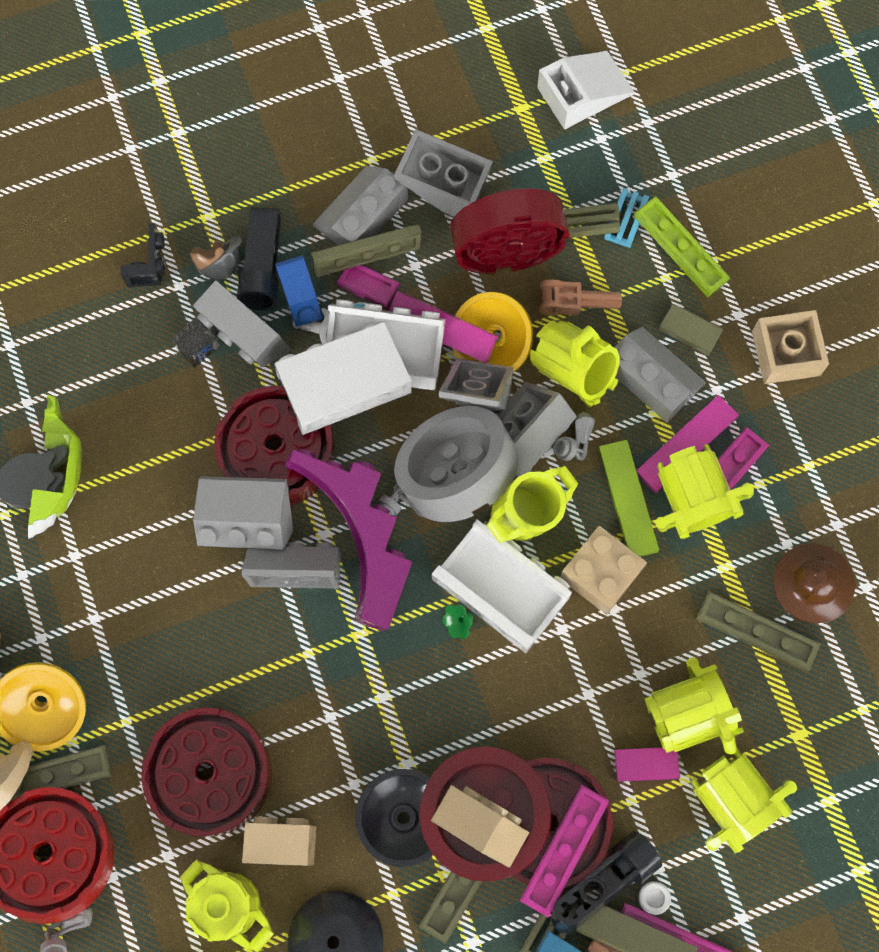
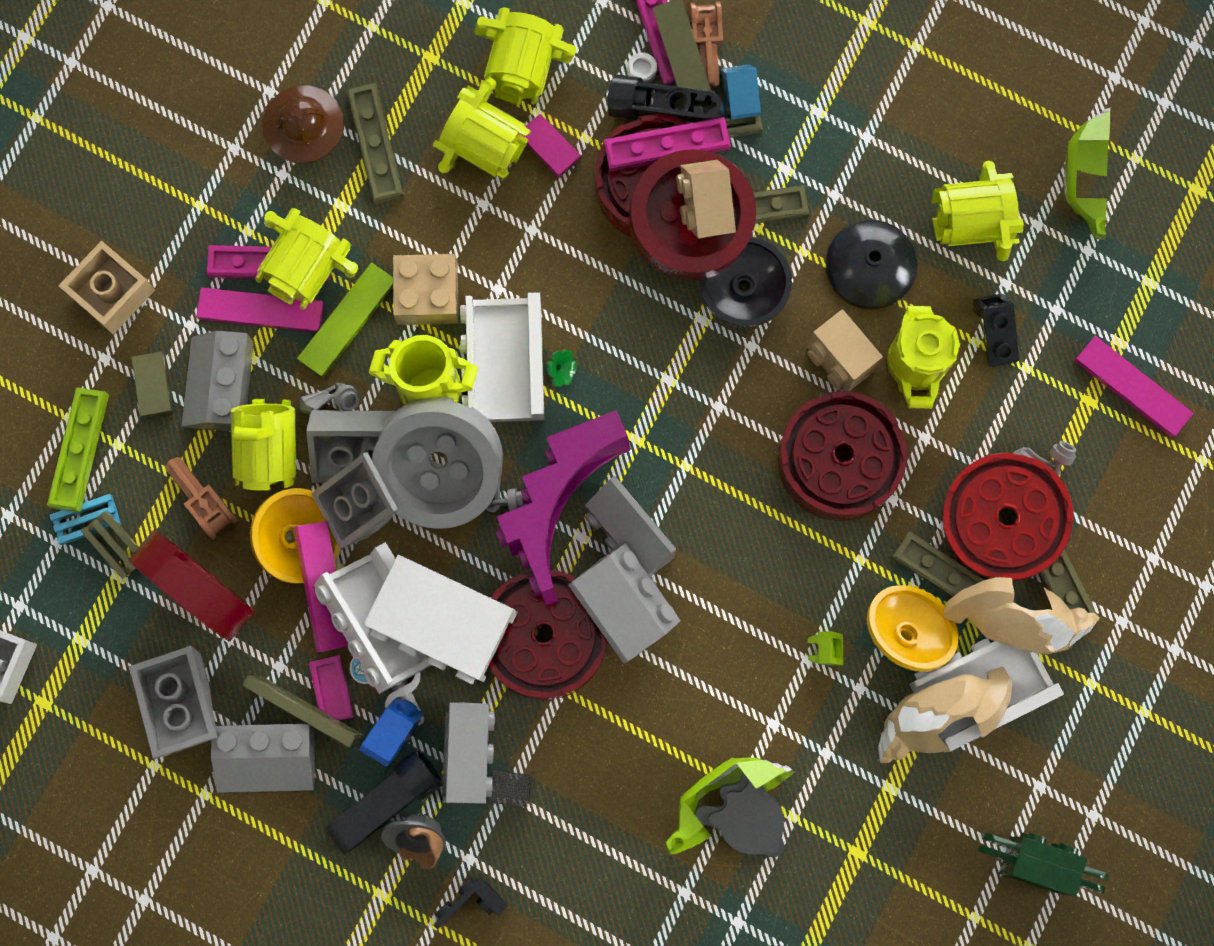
camera: 135 degrees left, 5 degrees up
(84, 637) = (829, 648): none -> lime tile

